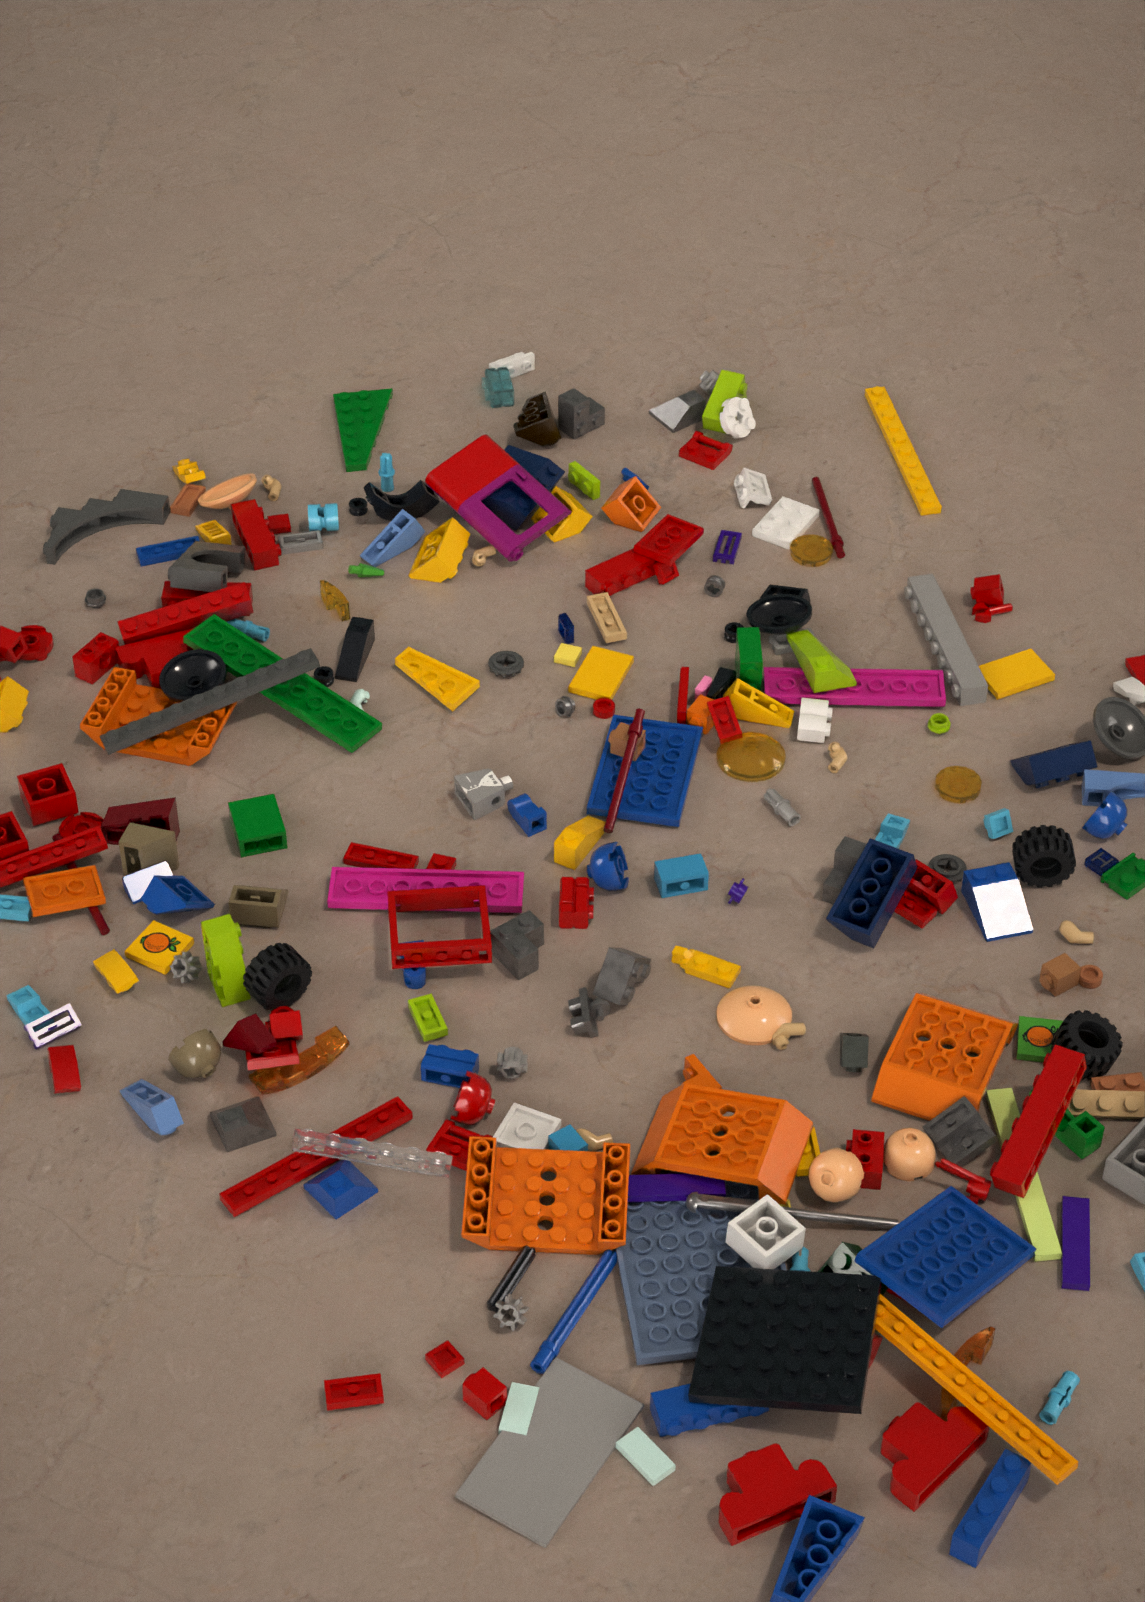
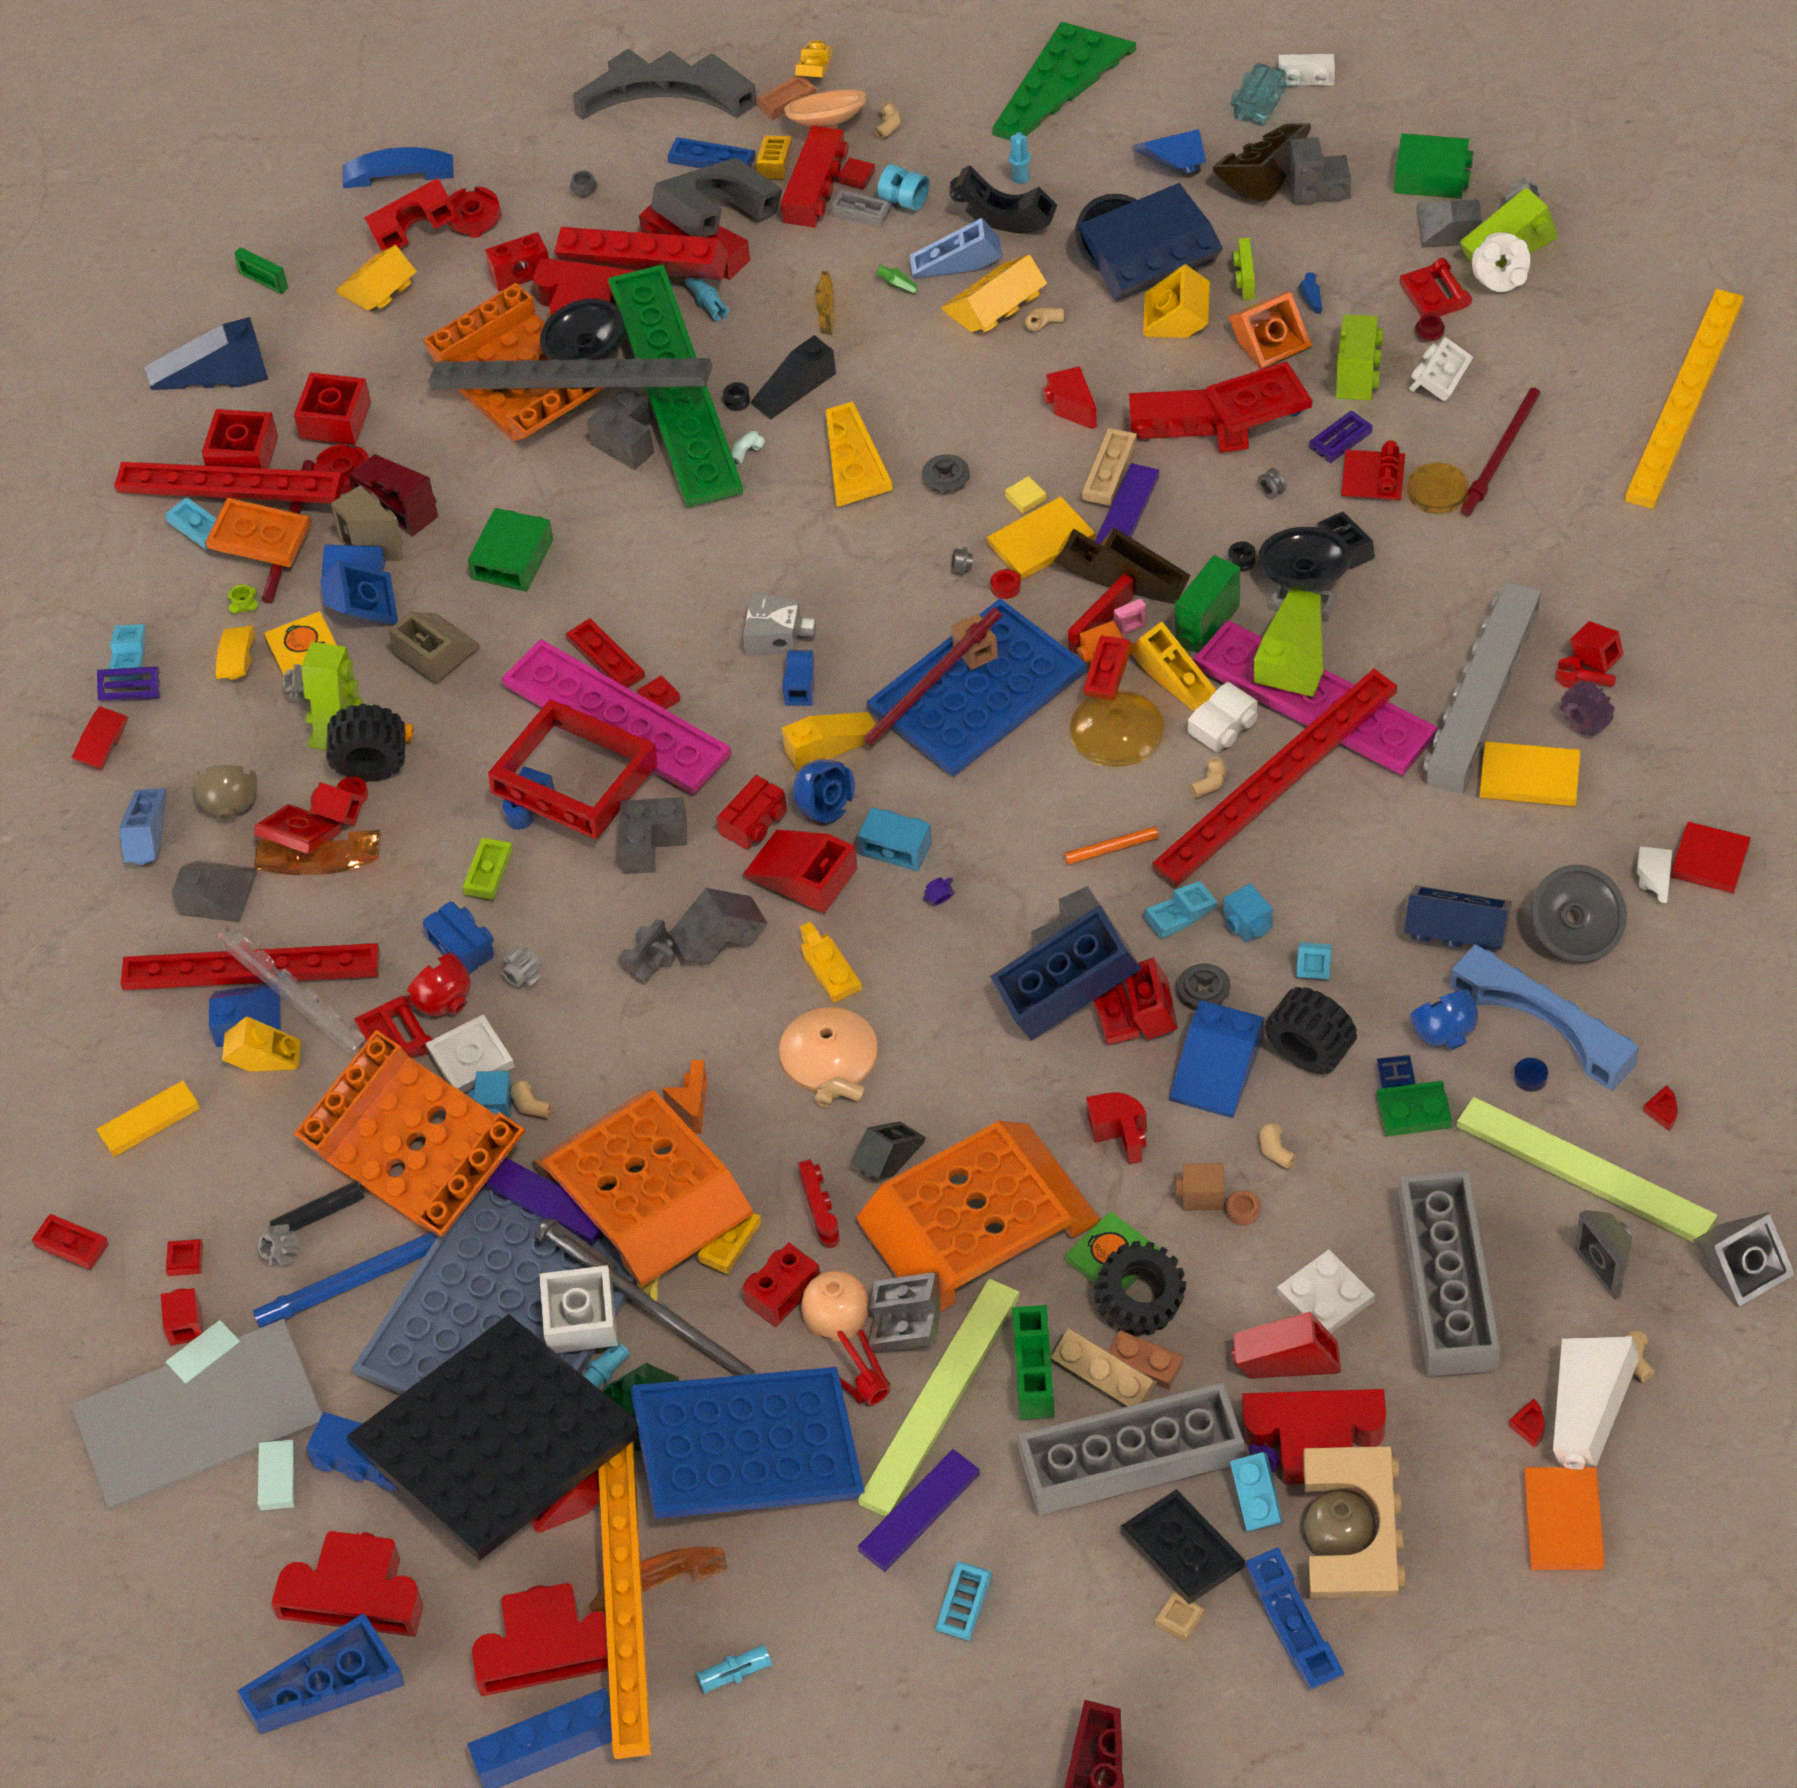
camera: 40 degrees right, 10 degrees up
(87, 938) = (242, 599): none -> lime plate
(250, 1035) = (290, 797): dark red slope -> none
(268, 727) = (622, 428): none -> flat silver brick
(332, 1287) = (148, 1118): none -> yellow tile
(375, 1199) = (260, 1047): none -> yellow slope
(479, 472) = (1094, 209): piece -> none
(486, 425) = (1176, 151): none -> blue slope
(547, 589) = (1071, 397): none -> red slope
(566, 628) = (1048, 459): clear blue tile -> none
(639, 916) = (804, 867): none -> red slope
(640, 639) = (1130, 501): none -> dark purple tile
(641, 386) = (1433, 166): none -> green brick
(665, 664) = (1119, 556): none -> dark brown slope
(700, 499) = (1358, 357): none -> lime wedge
(722, 681) = (1143, 622): black slope -> none
(723, 470) = (1430, 327): none -> dark red plate
(768, 557) = (1374, 473): none -> red hinge
(782, 807) = (1088, 811): light grey axle -> none
(785, 522) = (1443, 434): white plate -> none
(813, 820) = (1111, 845): none -> orange bar
(835, 1175) = (720, 1284): light nougat cylinder -> none
(840, 1101) = (819, 1203): none -> red plate
(879, 738) = (1274, 777): none -> red plate
(935, 816) = (1248, 913): none -> dark azure brick
(939, 723) = (1371, 789): lime plate -> none
(958, 784) = (1321, 885): clear yellow tile -> none
(976, 961) = (1117, 1116): none -> red brick
(1017, 623) = (1587, 708): none -> clear purple gear
(1038, 1121) = (982, 1348): red brick -> none

